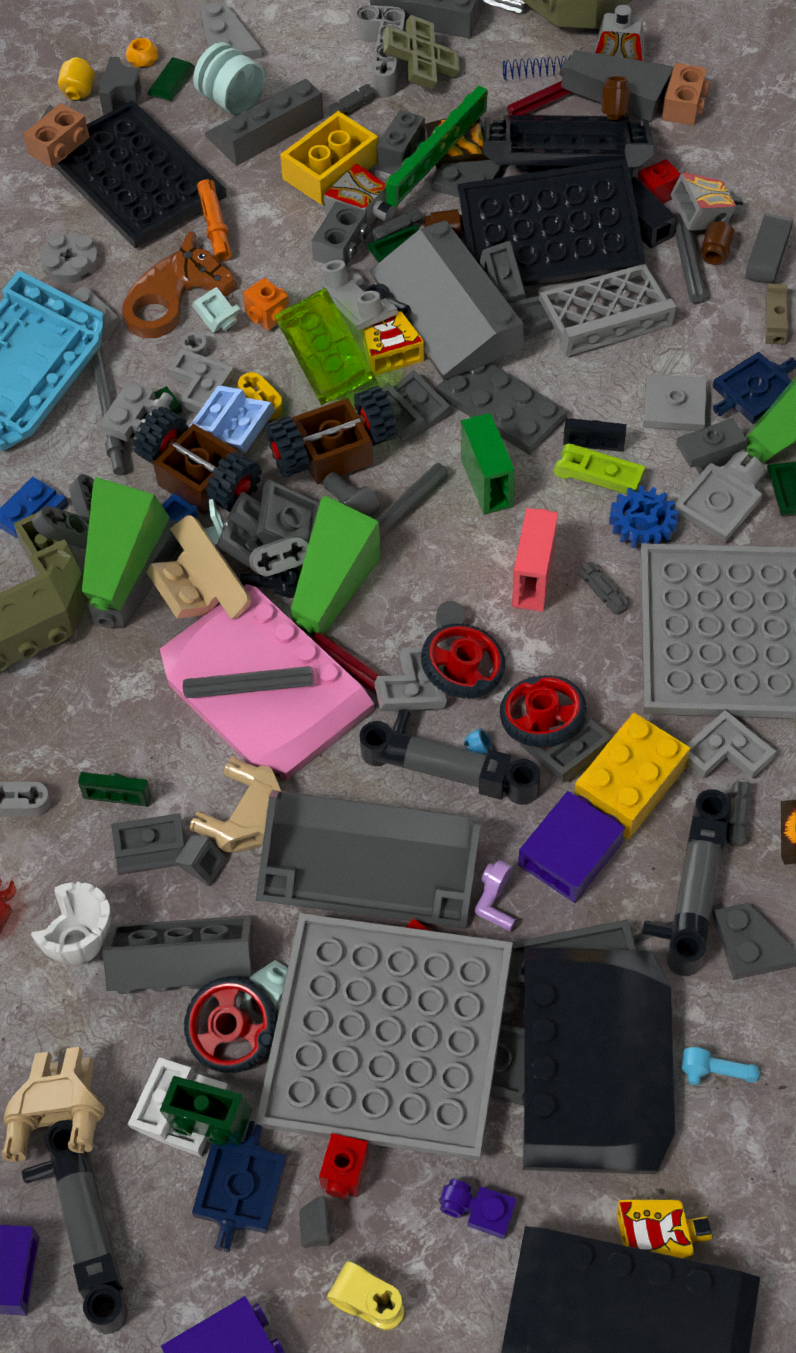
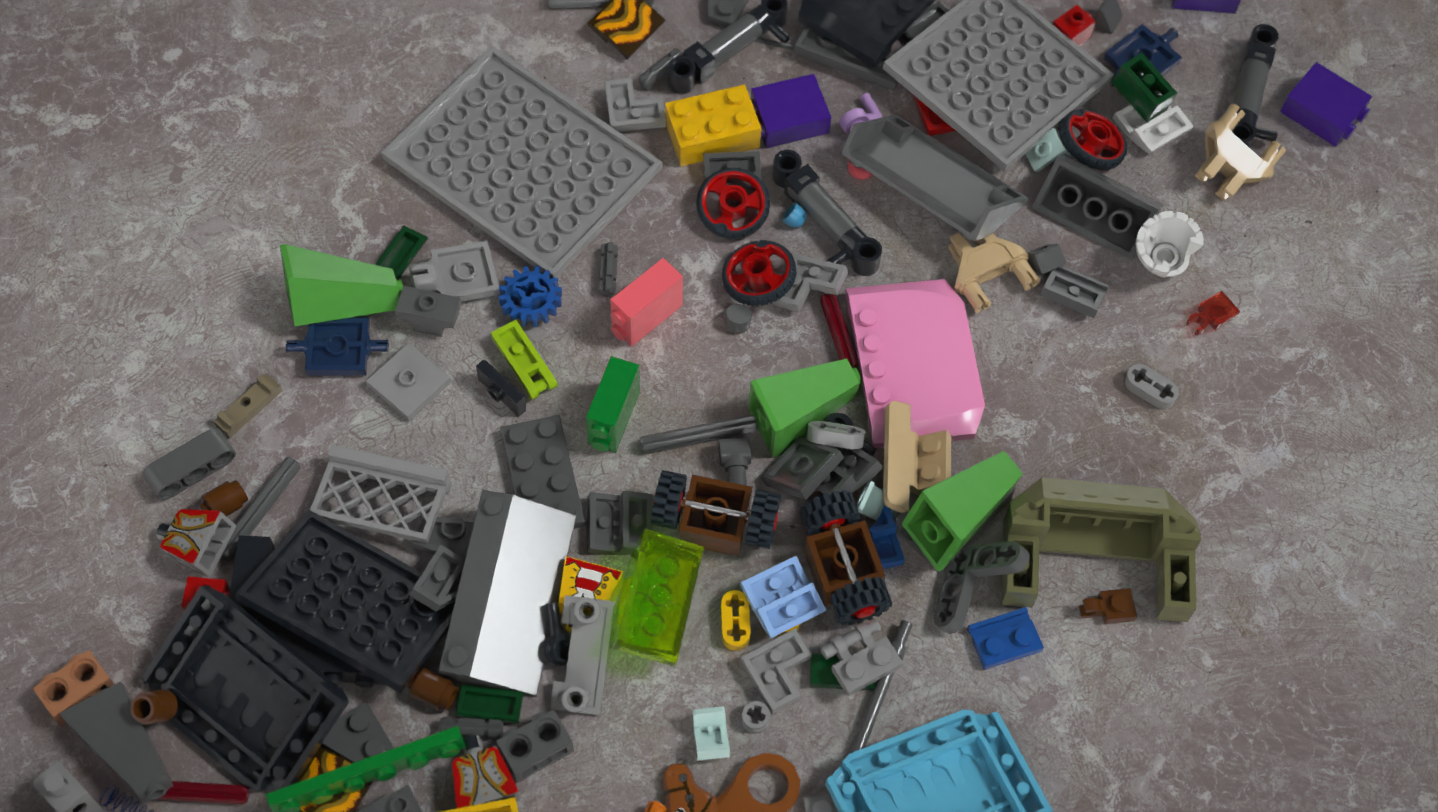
camera: 150 degrees left, 5 degrees up
(114, 788) = (1077, 342): dark green plate -> none
(248, 682) = (932, 345): dark grey axle -> none
(263, 302) = (664, 703): orange brick -> none

